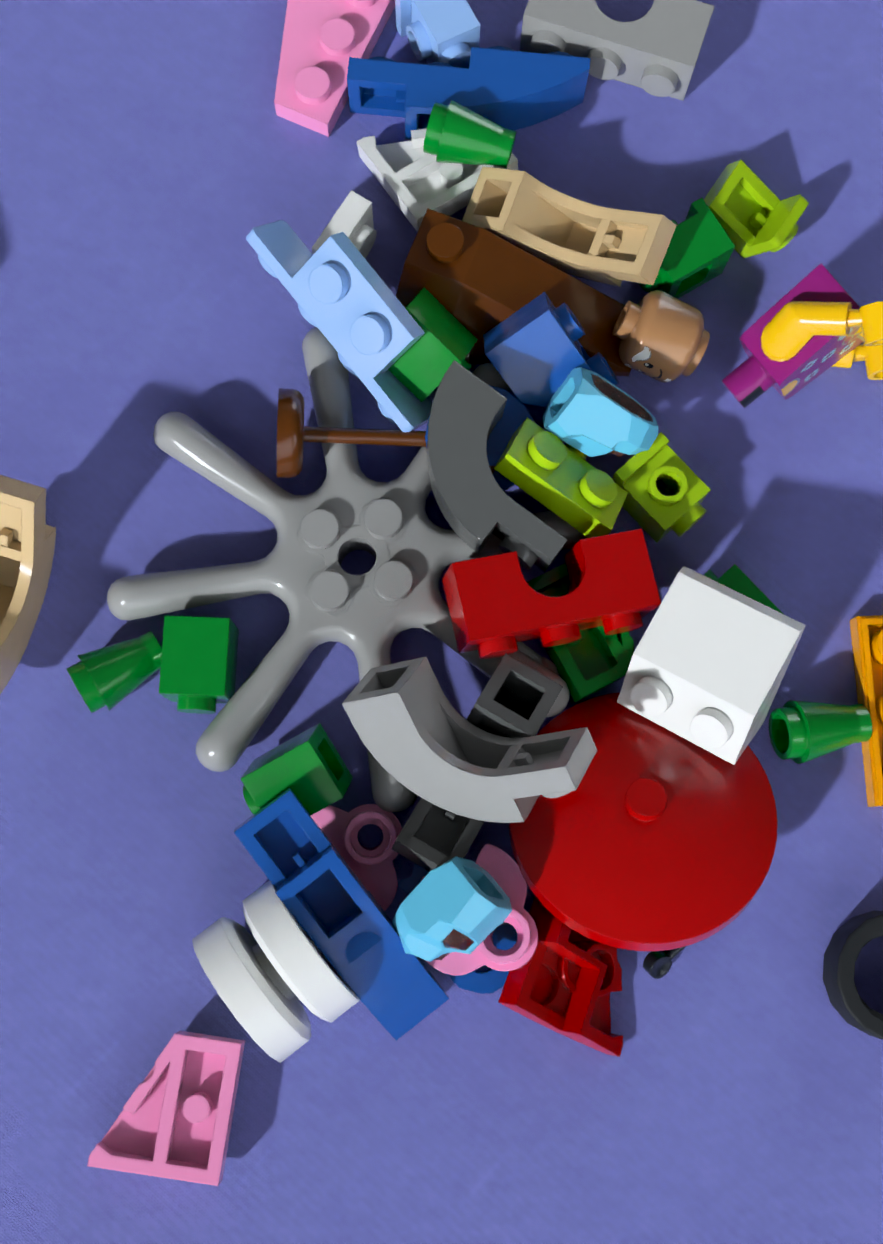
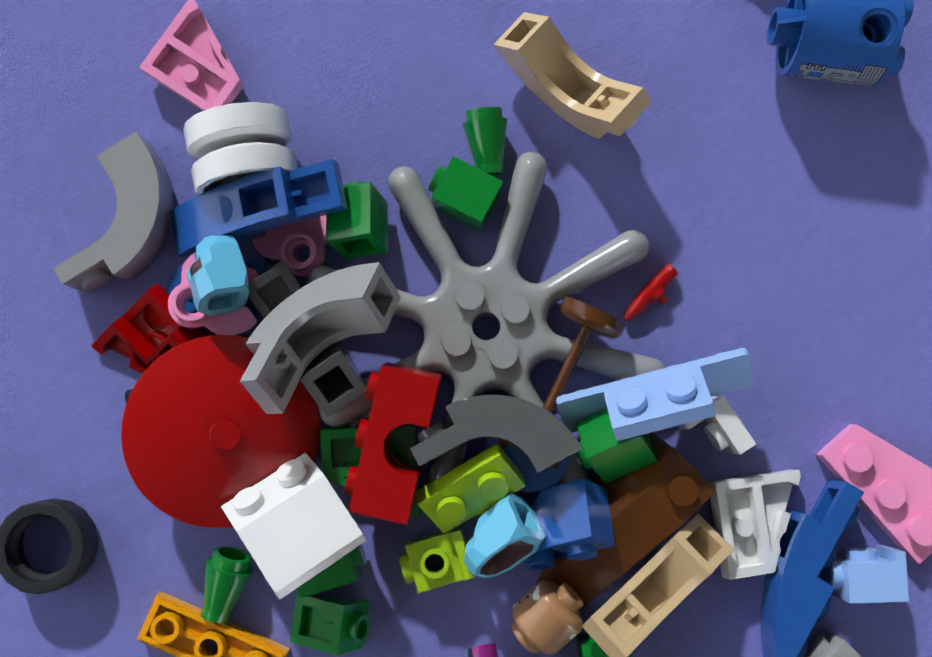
camera: 120 degrees right, 5 degrees up
(223, 390) = (651, 292): none -> red helmet
(426, 1071) = (139, 222): none -> light grey arch
(467, 137) = (761, 548): green cone -> none
(799, 578) = (330, 623): none -> green bracket

